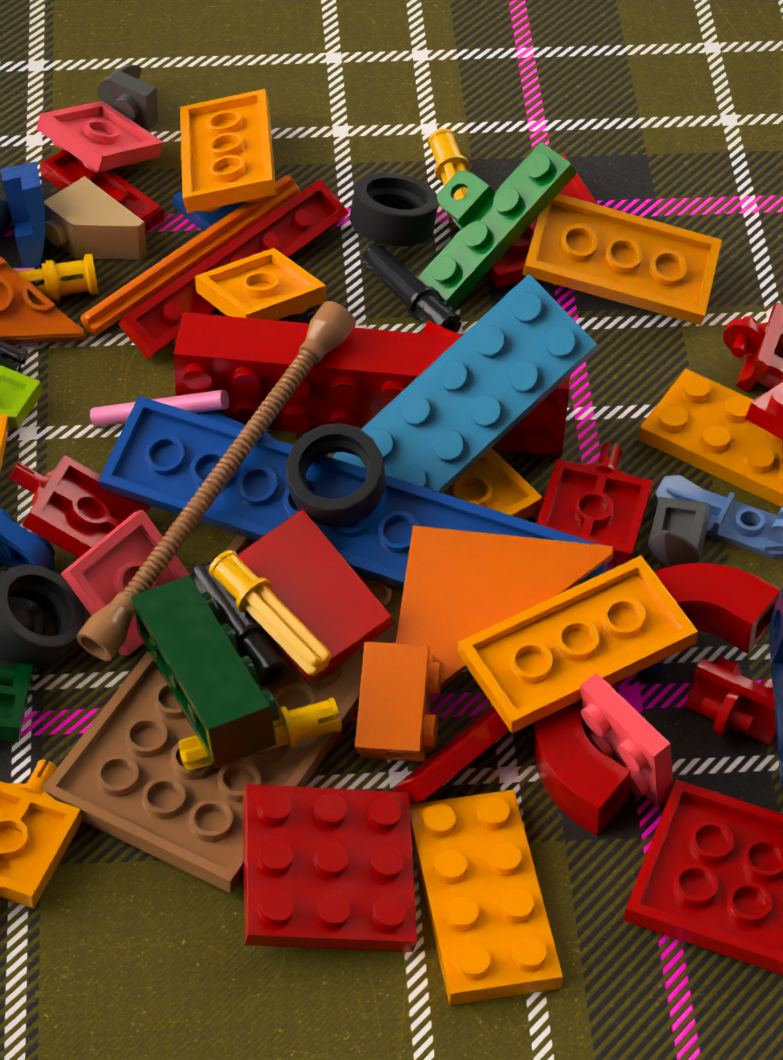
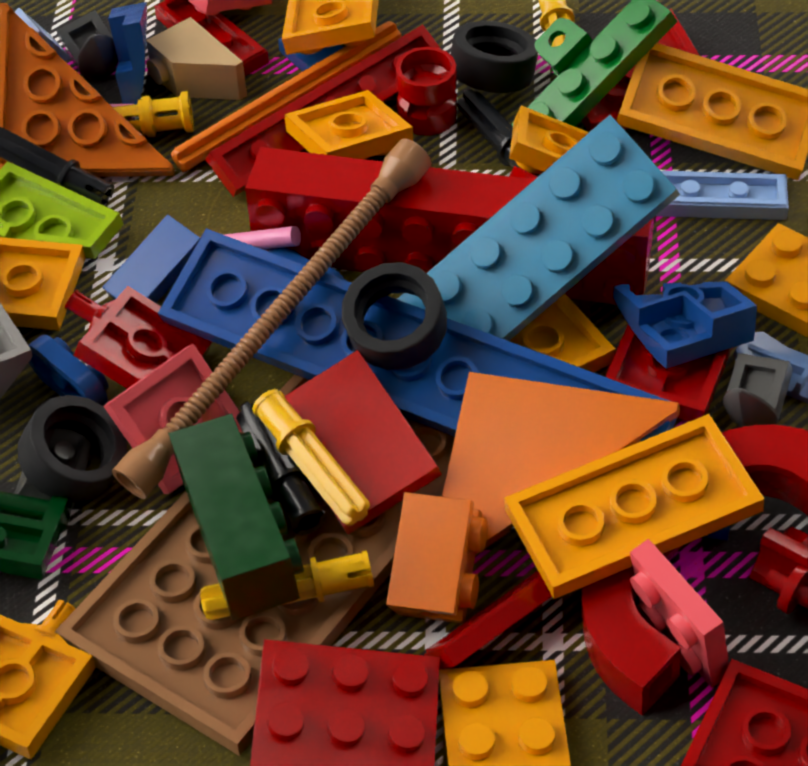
camera: 10 degrees right, 0 degrees up
(84, 429) = (155, 261): none -> tile
(332, 245) = (427, 90): none -> red wheel
(457, 297) = (540, 140): none -> light orange plate
(610, 466) = (688, 319): none -> blue slope
(640, 342) = (728, 195): none -> light blue tile

